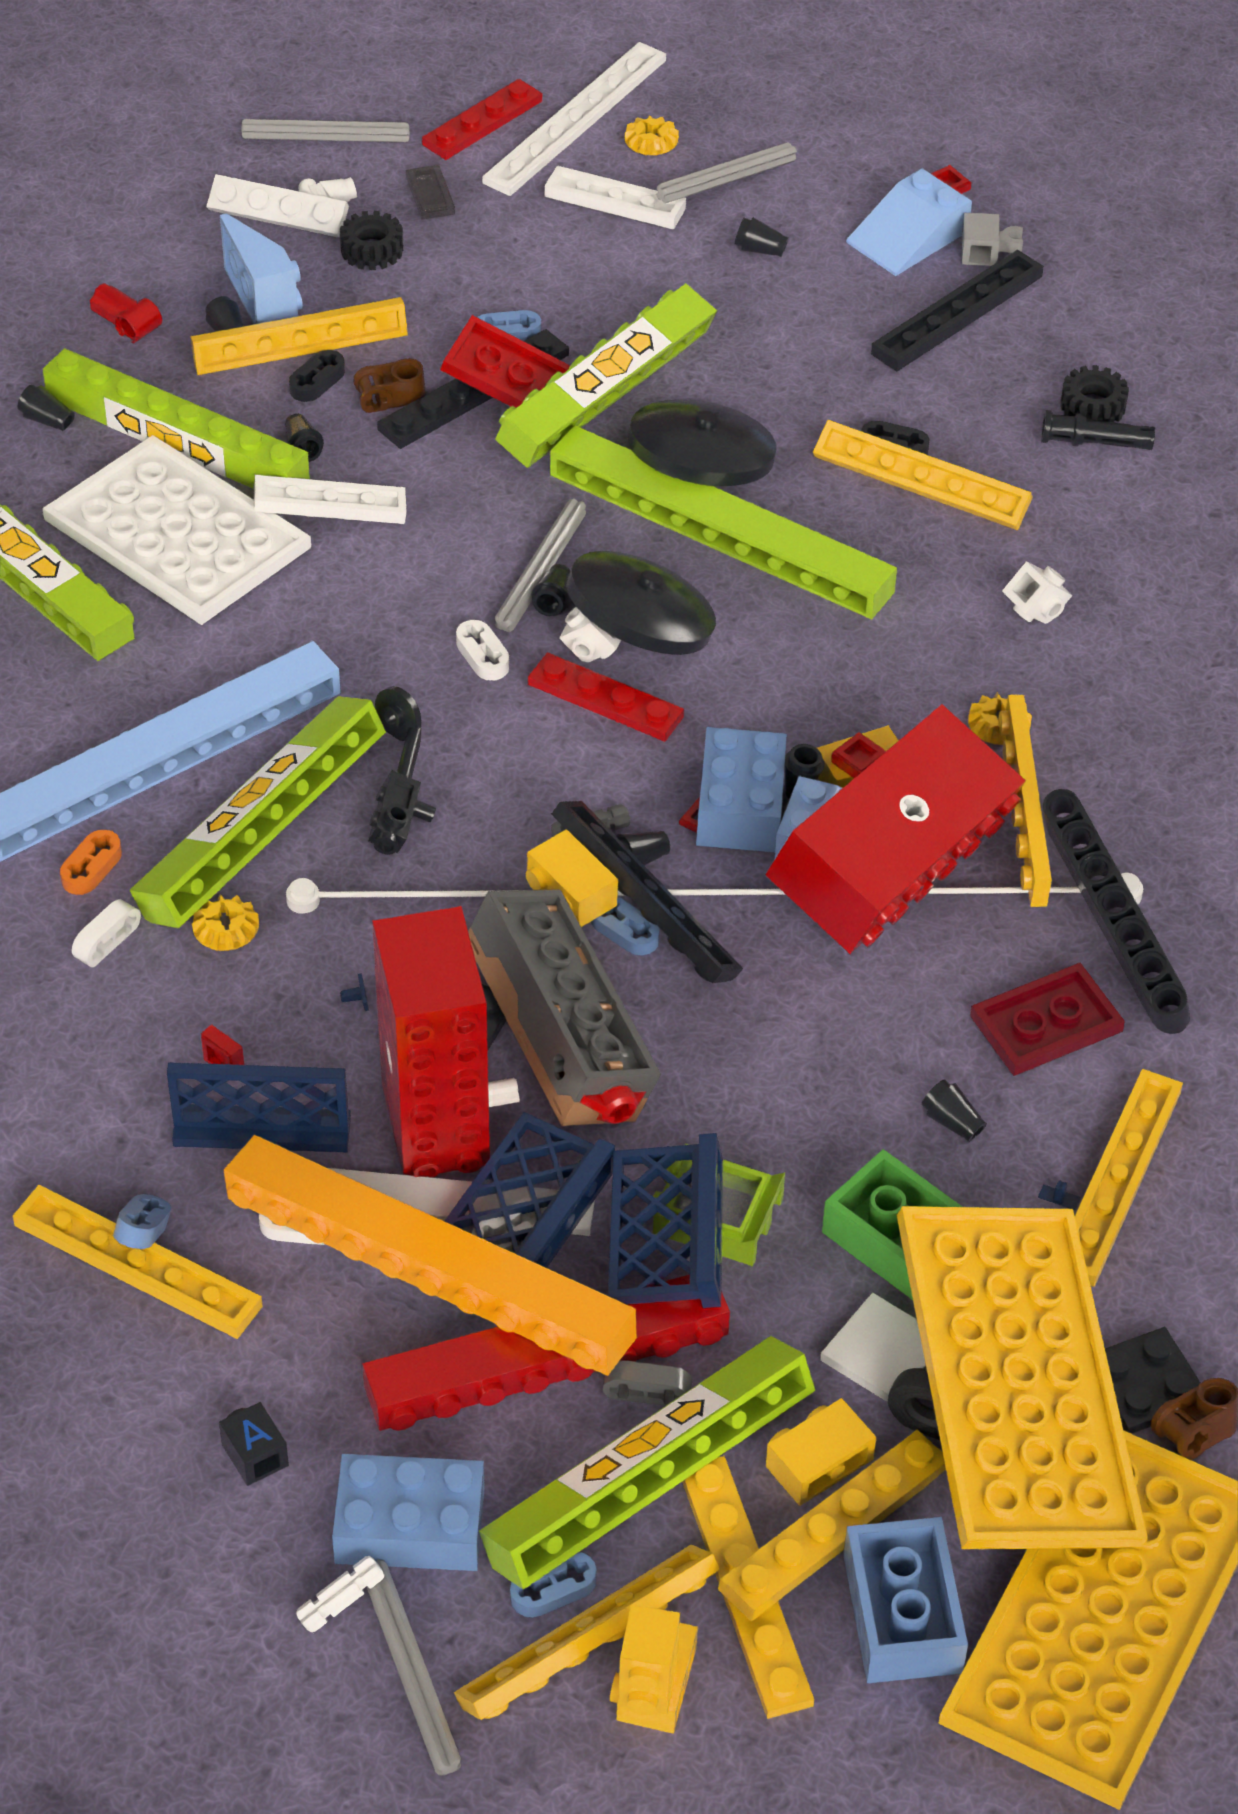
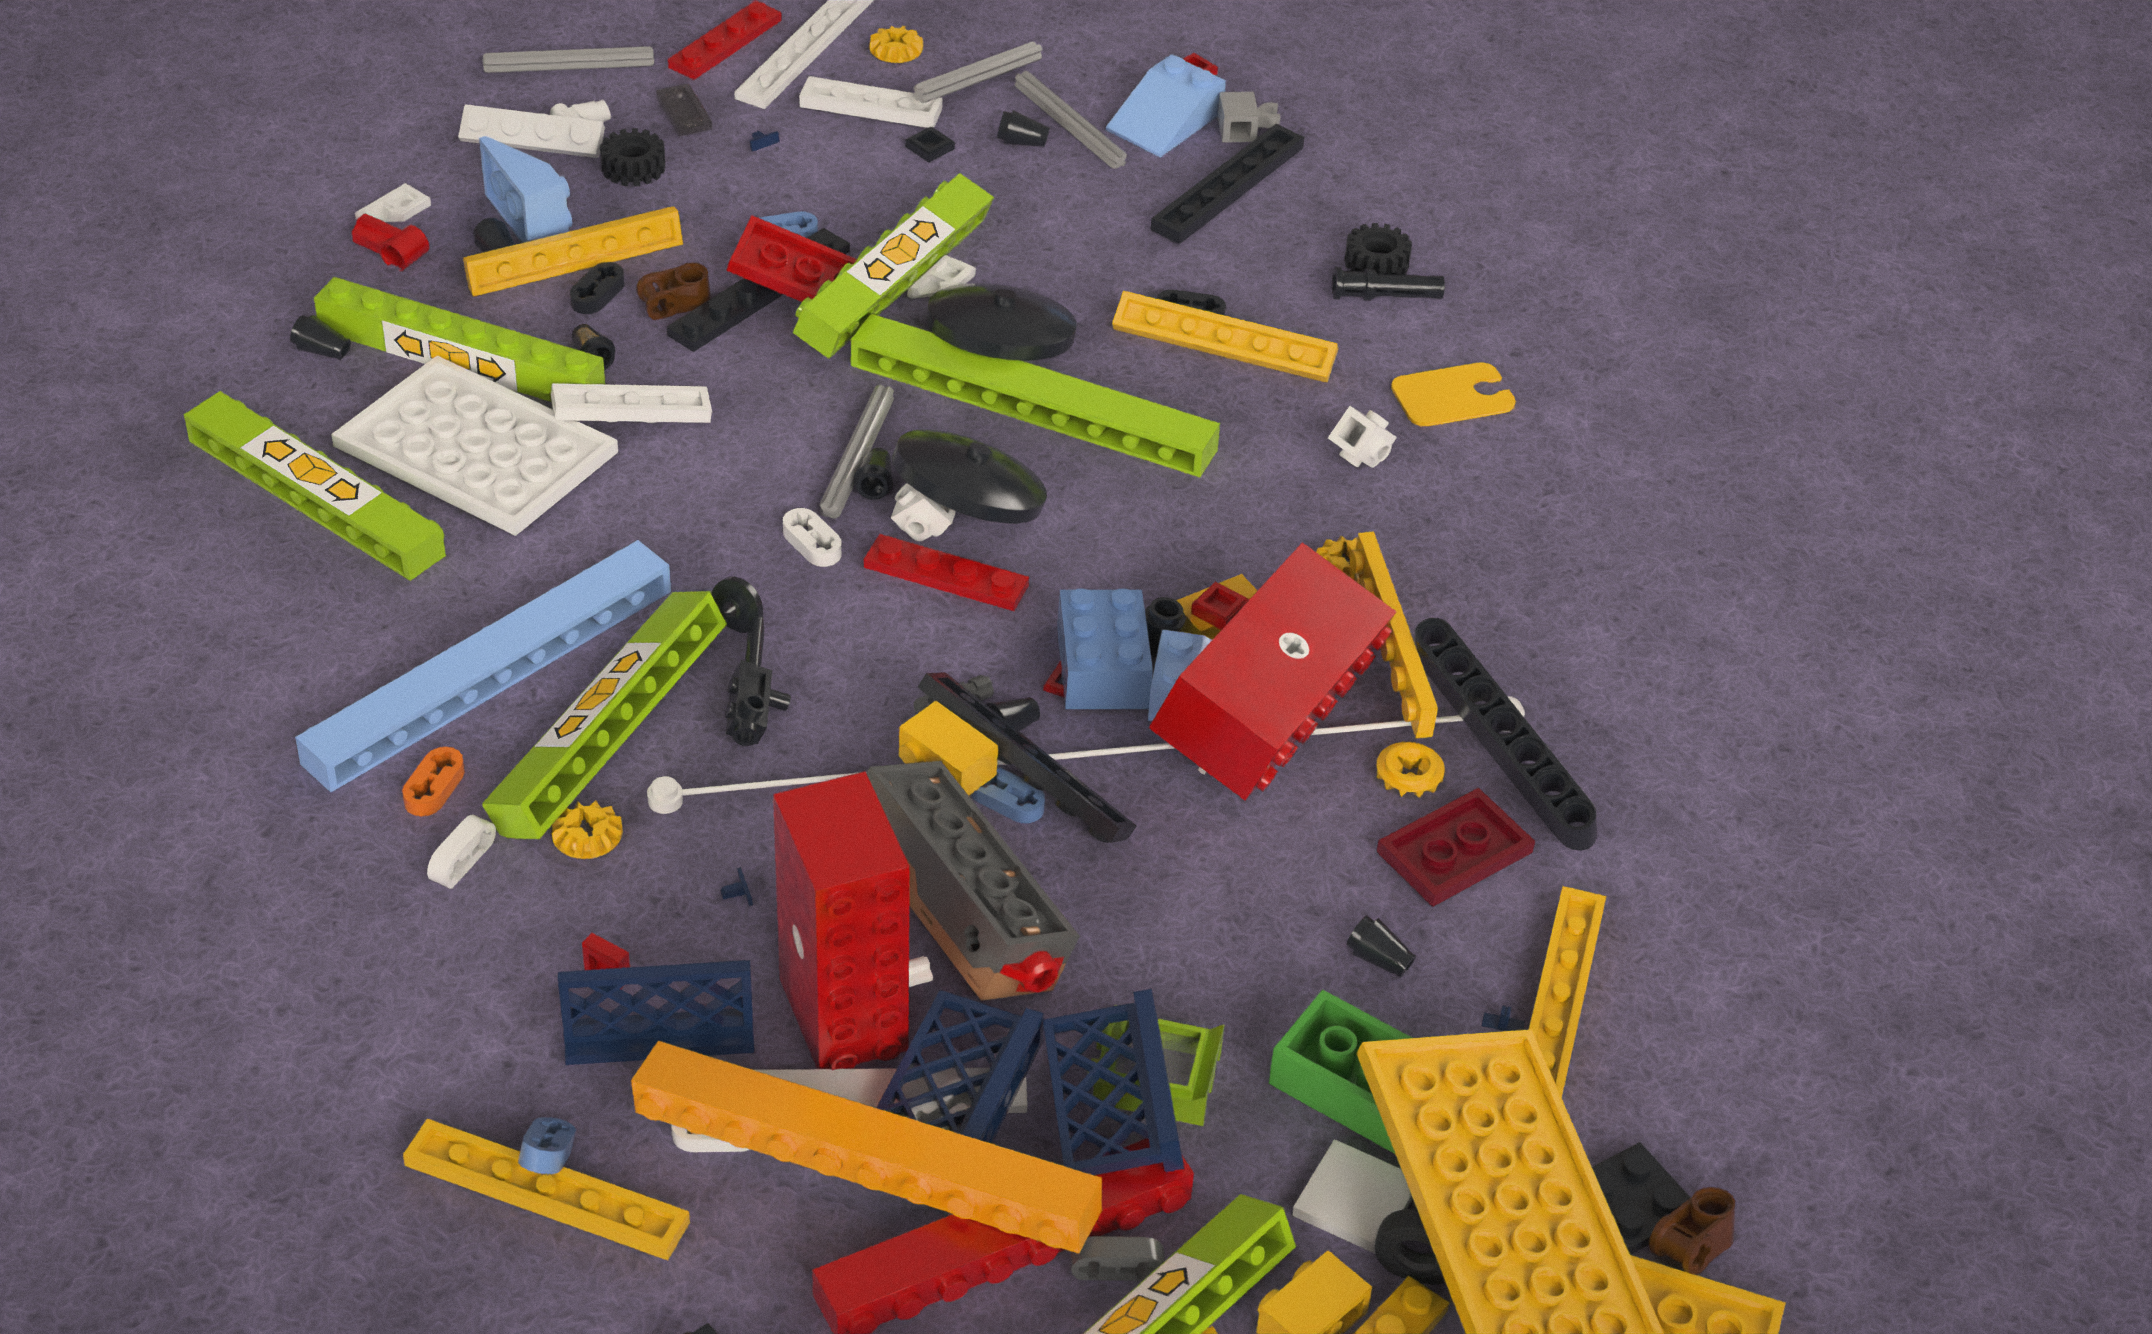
camera: 10 degrees left, 5 degrees down
(137, 274) = (397, 205): none -> white tile
(503, 230) = (761, 141): none -> dark blue piece
(656, 387) = (941, 275): none -> white tile
(667, 246) = (929, 144): none -> black tile
(812, 230) = (1070, 120): none -> light grey axle
(1020, 922) = (1410, 755): none -> yellow gear
(1138, 553) = (1450, 394): none -> yellow piece

